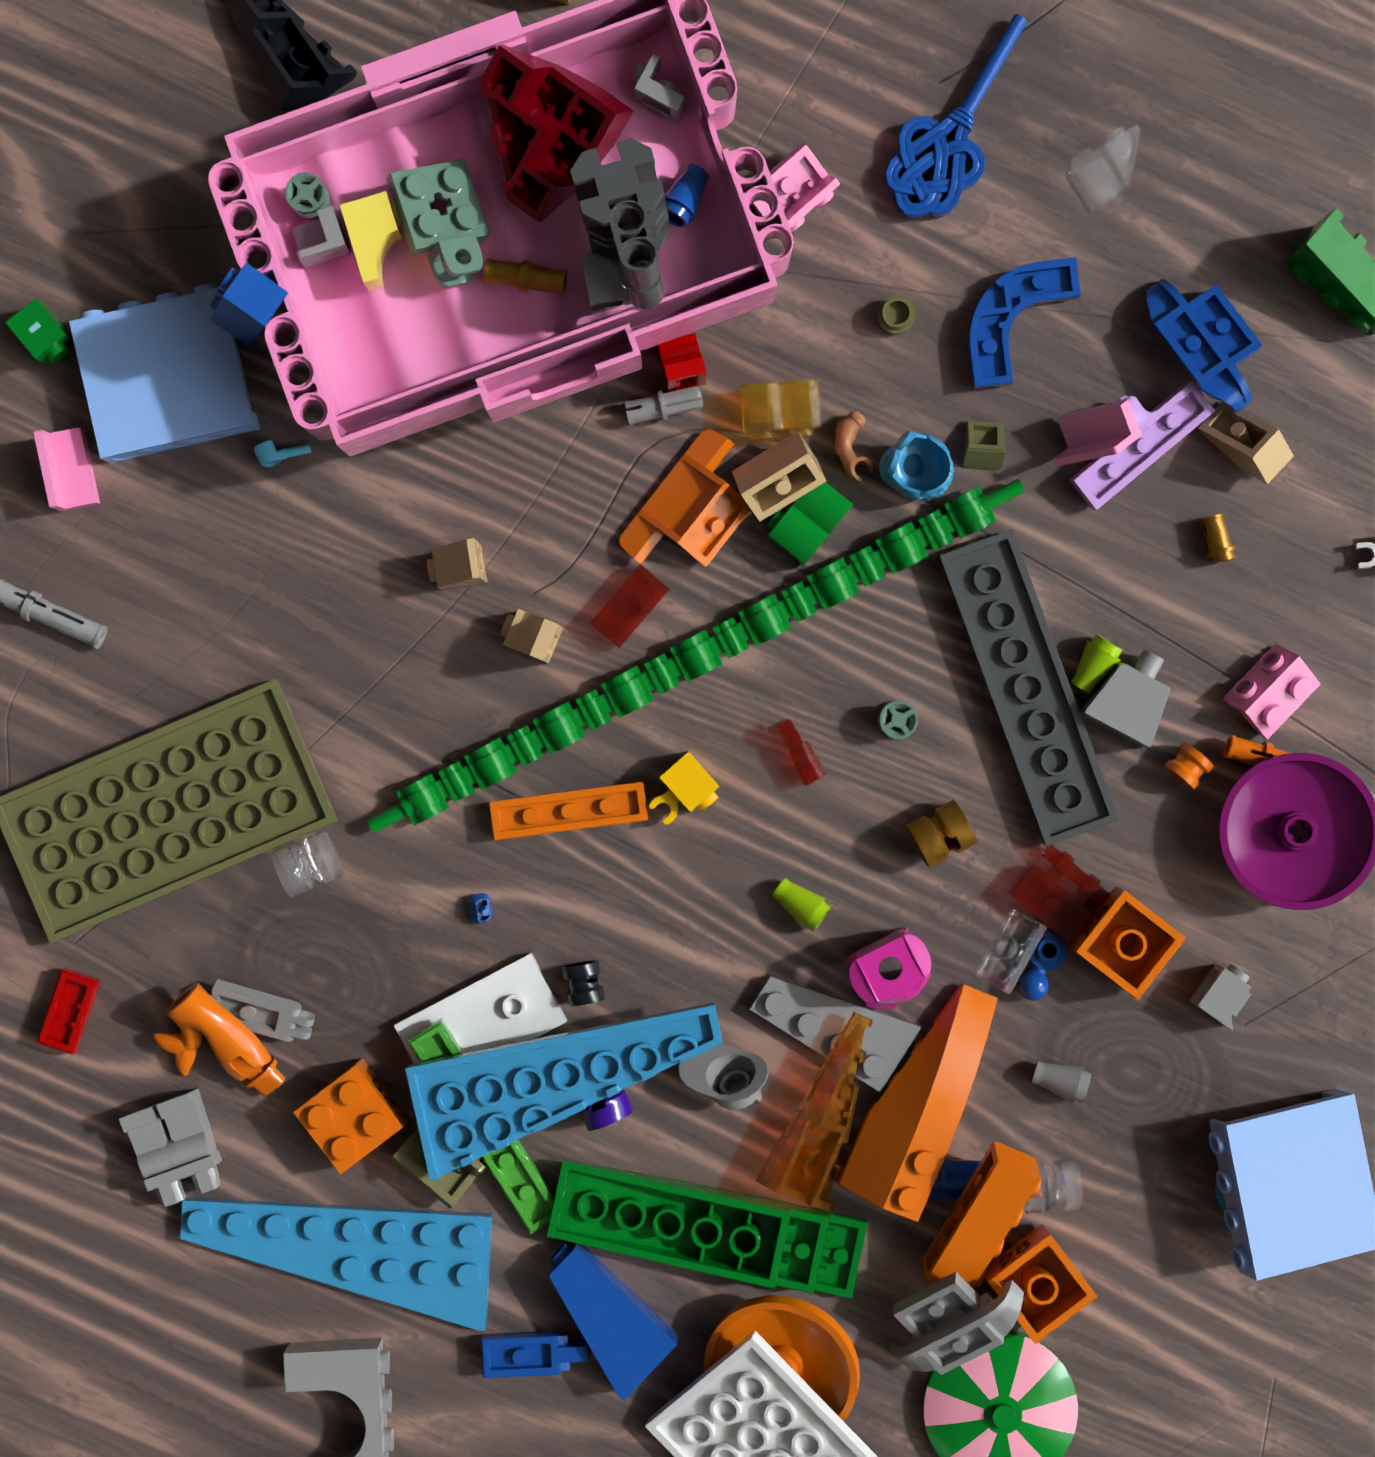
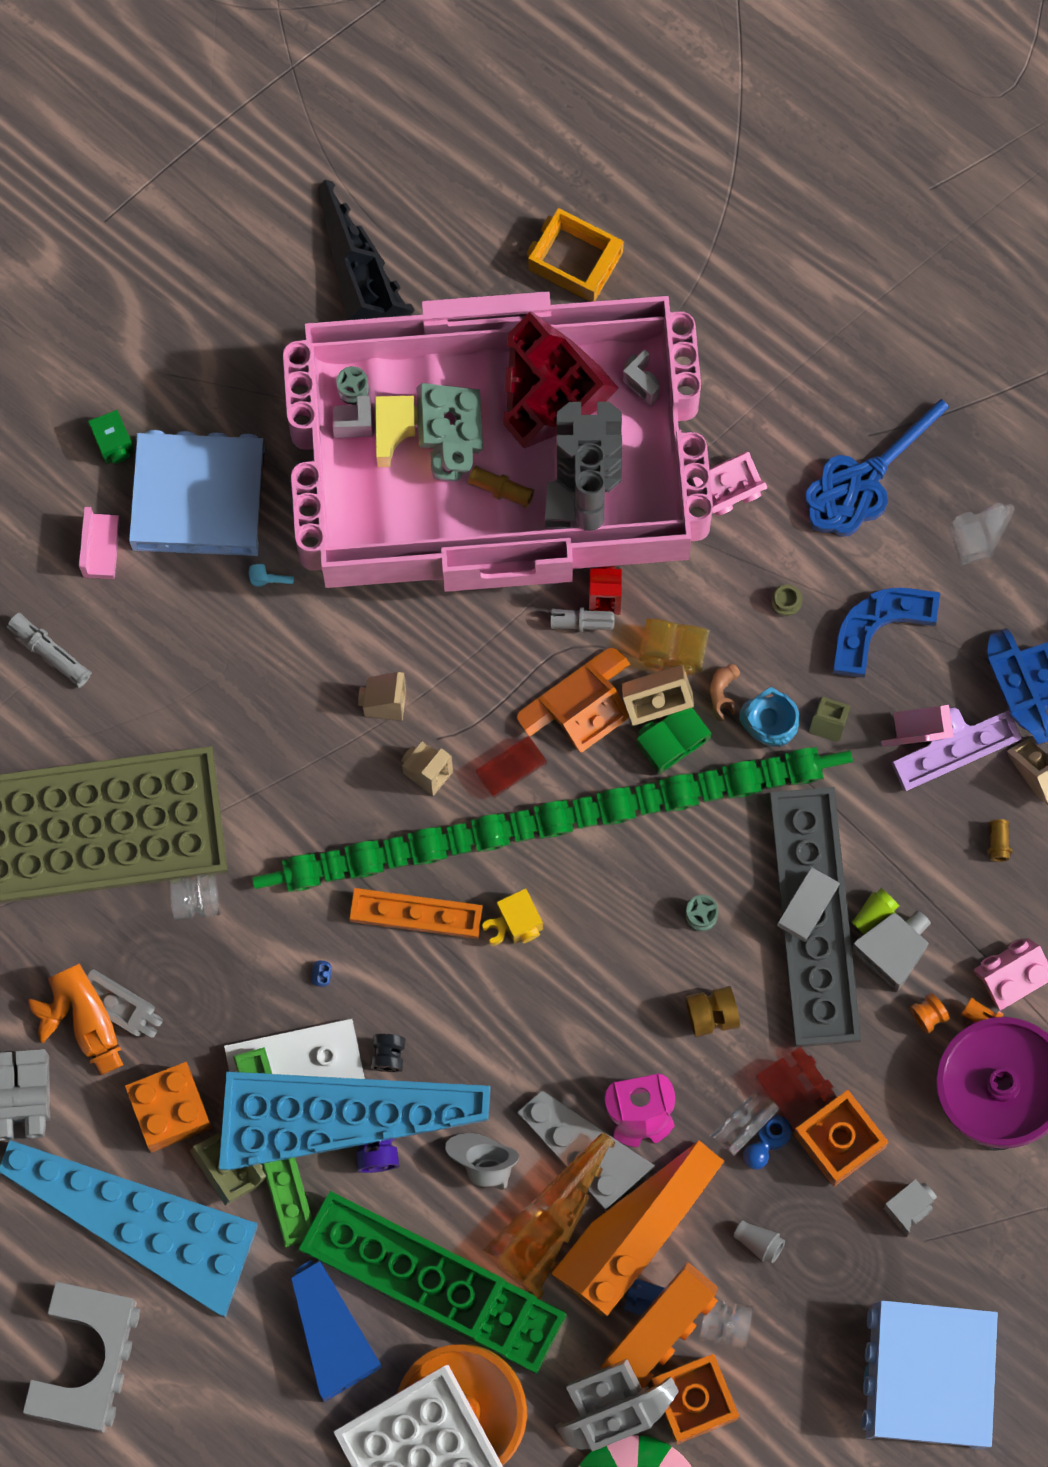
camera: 15 degrees right, 15 degrees down
(246, 303) = (281, 450): blue brick -> none
(530, 1354) = (255, 1345): blue hinge -> none
(685, 196) = (640, 460): blue cone -> none
(801, 754) = (616, 919): clear red bar -> none
(803, 905) = (585, 1041): lime cone -> none
(1020, 680) = (808, 904): none -> light grey slope

